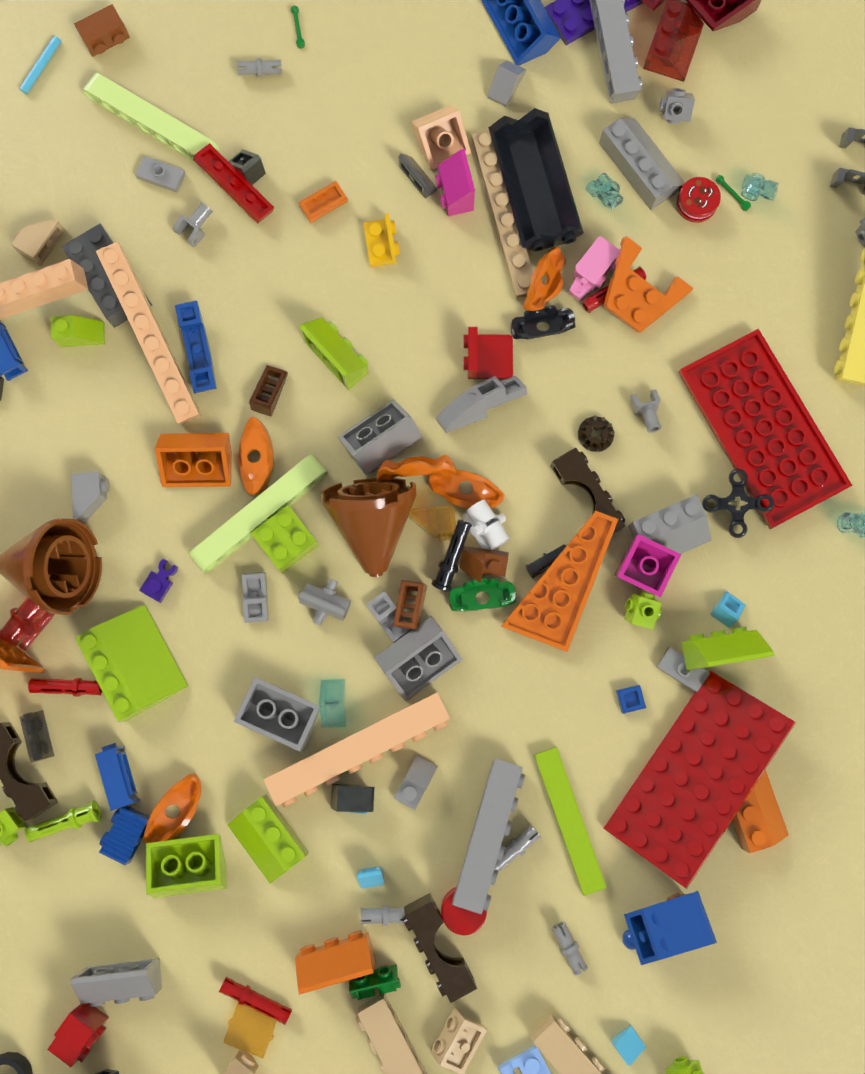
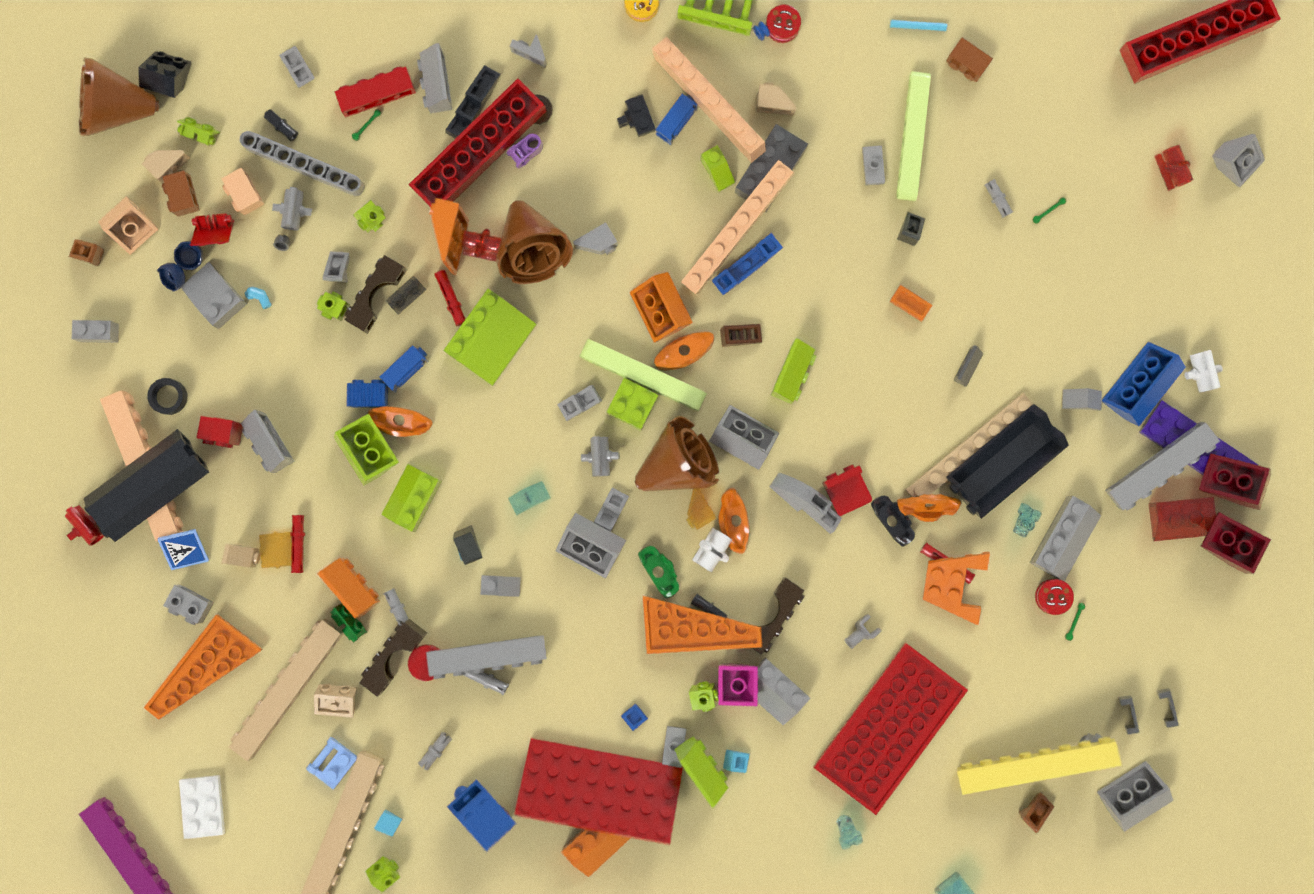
camera: 65 degrees right, 5 degrees up
(74, 818) = (361, 352): lime pin -> none
(157, 584) = (555, 326): dark purple plate -> none
(196, 221) = (846, 213): light grey piece -> none
(233, 183) = (891, 227): red plate -> none
(278, 714) = (501, 463): light grey slope -> none
(356, 749) = (504, 532): light nougat brick -> none
(370, 877) = (418, 585): medium azure slope -> none
(380, 242) = (899, 363): yellow bracket -> none
(403, 595) = (630, 512): dark orange slope -> none
(416, 466) = (732, 477): orange piece -> none
(440, 135) = (1009, 370): light nougat slope -> none
(449, 566) = (669, 536): black pin -> none
(456, 184) = (972, 401): dark pink slope -> none
(483, 561) = (684, 557): dark orange slope -> none
(570, 821) = (525, 711): lime tile -> none
(593, 268) = (956, 539): bright pink hinge -> none
(594, 443) = (816, 603): dark brown gear -> none
(677, 106) = (1124, 545): light grey brick -> none
(738, 491) = (827, 728): black gear -> none
(757, 186) = (1087, 637): clear light blue plate -> none

